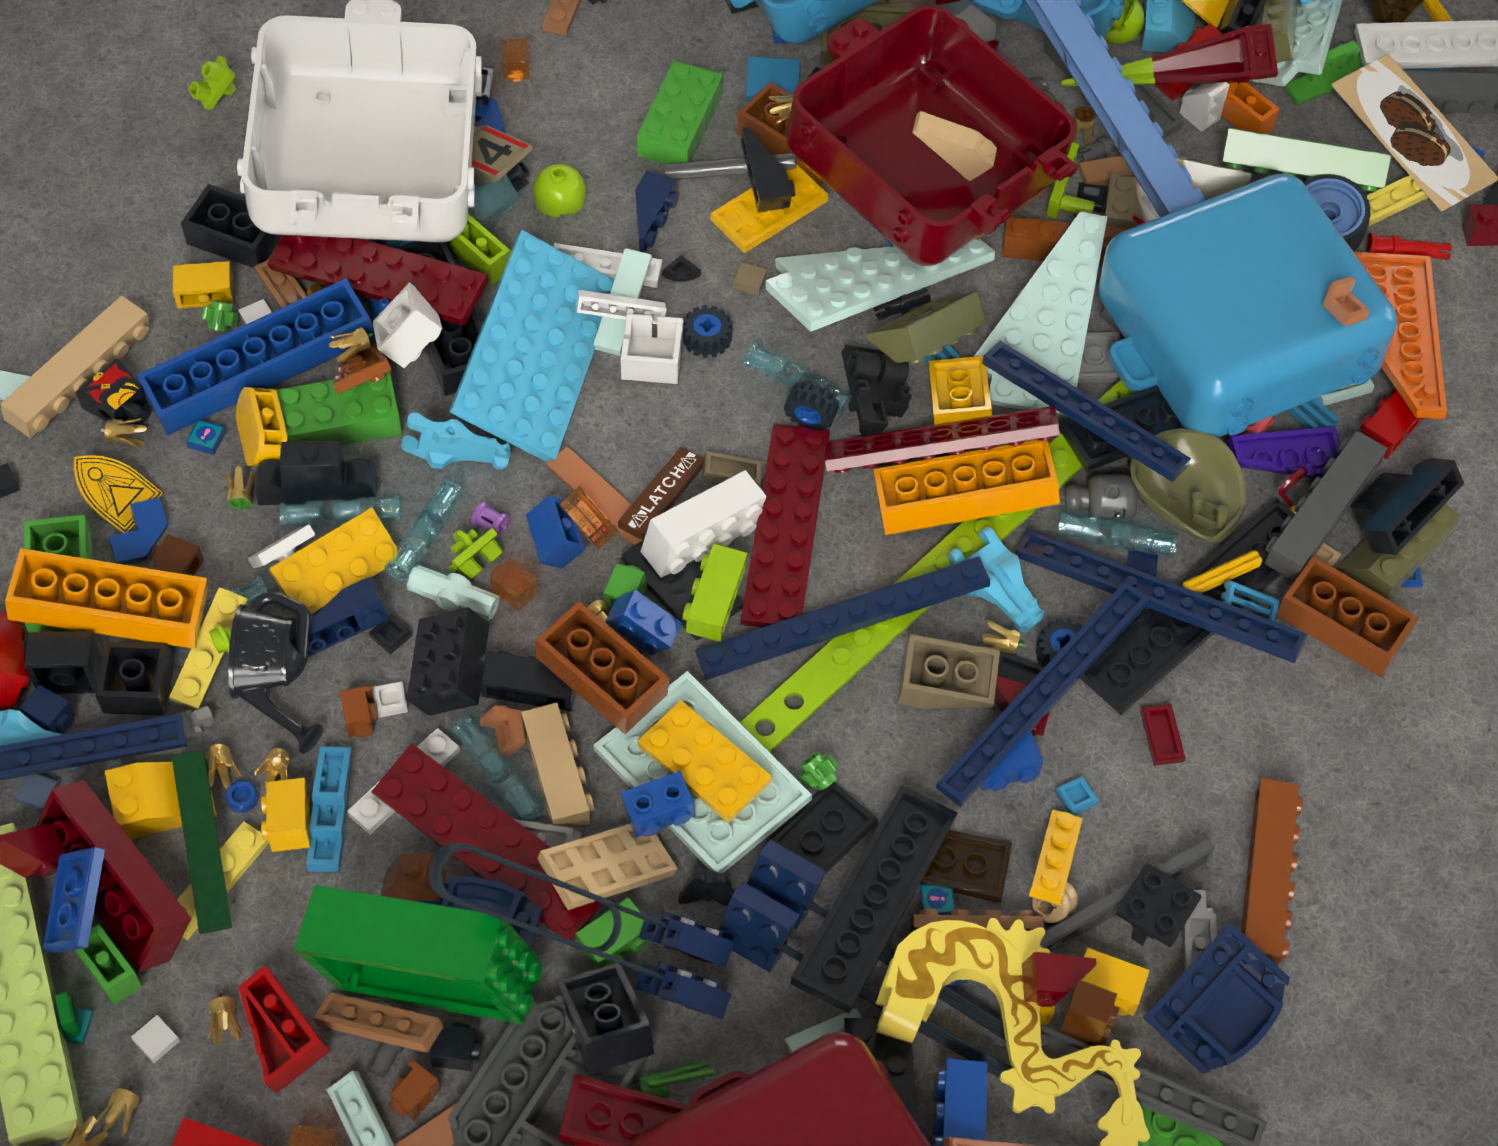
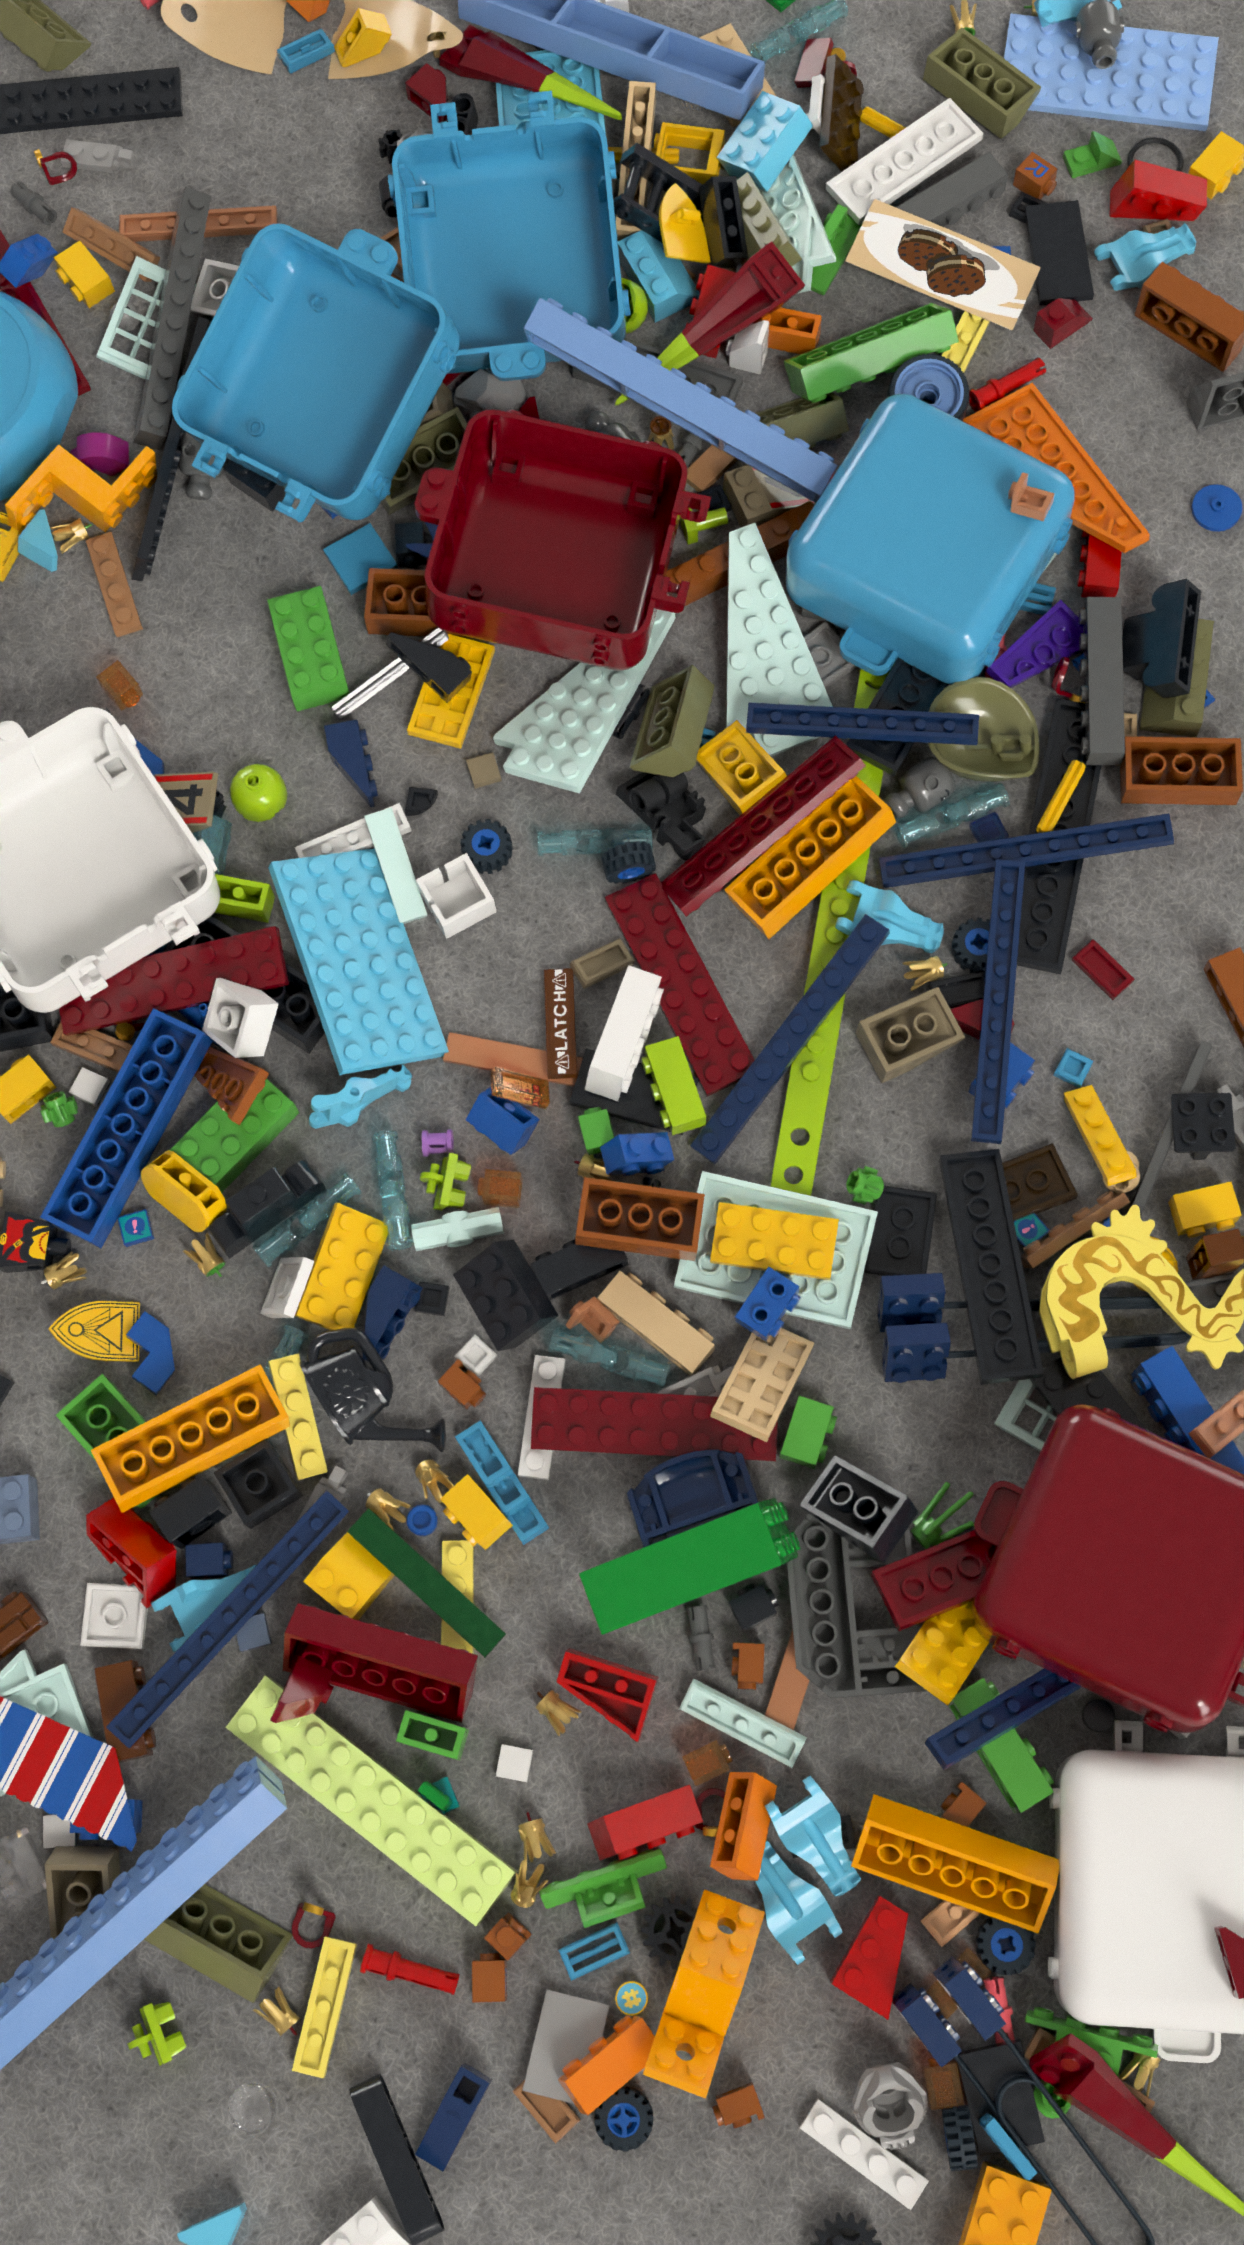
camera: 25 degrees left, 15 degrees up
(73, 900) = (374, 1707): blue tile -> none
(177, 556) = (206, 1359): reddish brown slope -> none
(220, 638) = (309, 1404): lime plate -> none
(356, 340) = (208, 1058): pearl gold piece -> none
(378, 1022) = (684, 1631): medium nougat plate -> none
(410, 879) = (618, 1498): reddish brown slope -> none
(617, 306) = (402, 876): white piece -> none
(667, 930) = (867, 1403): piece -> none
(707, 886) = (849, 1341): black animal -> none
(784, 109) = (408, 578): pearl gold piece -> none
(958, 145) = (589, 537): tan slope -> none
(1052, 976) = (1175, 1243): dark red slope -> none
(1232, 587) = (1082, 815): dark azure tile -> none

